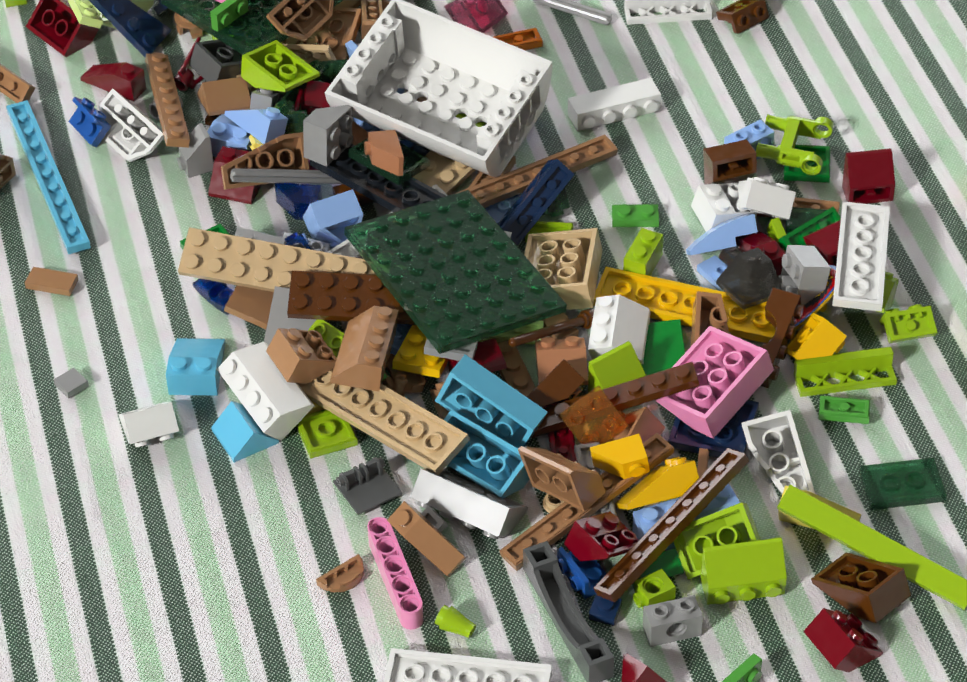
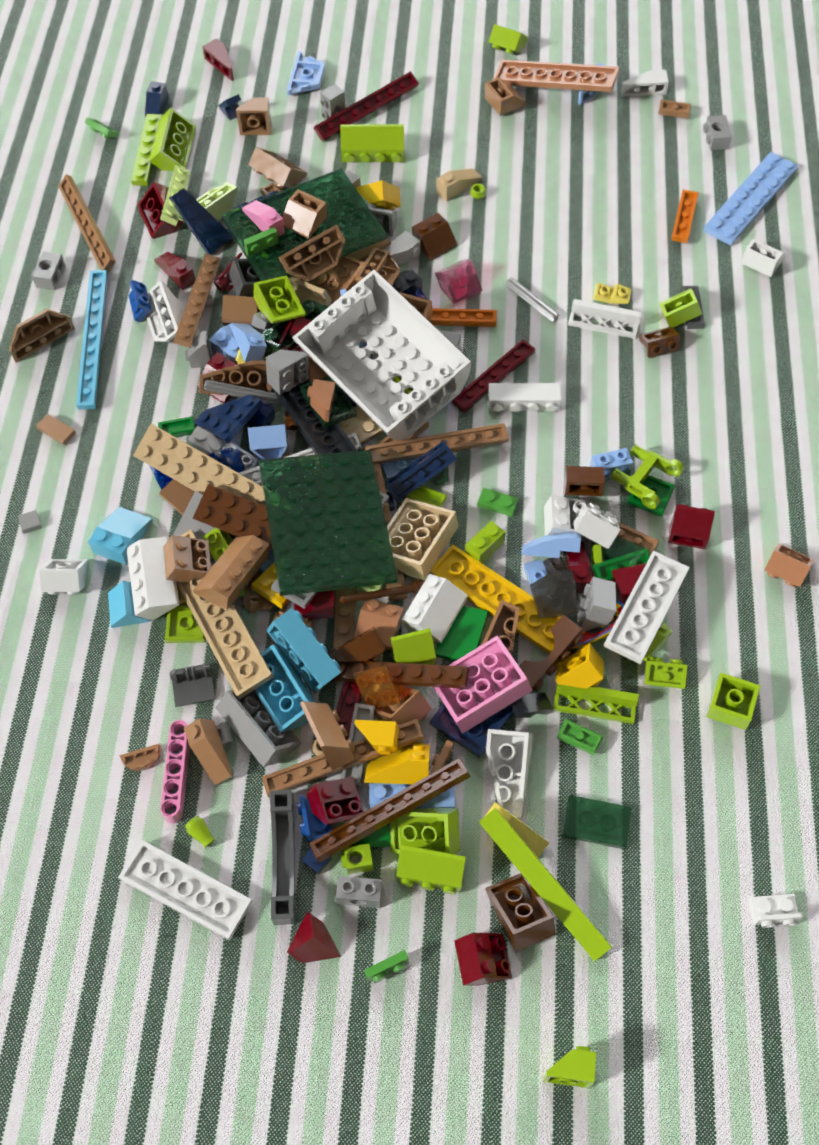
camera: 20 degrees right, 15 degrees up
(273, 209) = (229, 418): none -> dark blue plate
(569, 86) = (494, 374): none -> dark red tile
(775, 392) = (532, 704): none -> black slope

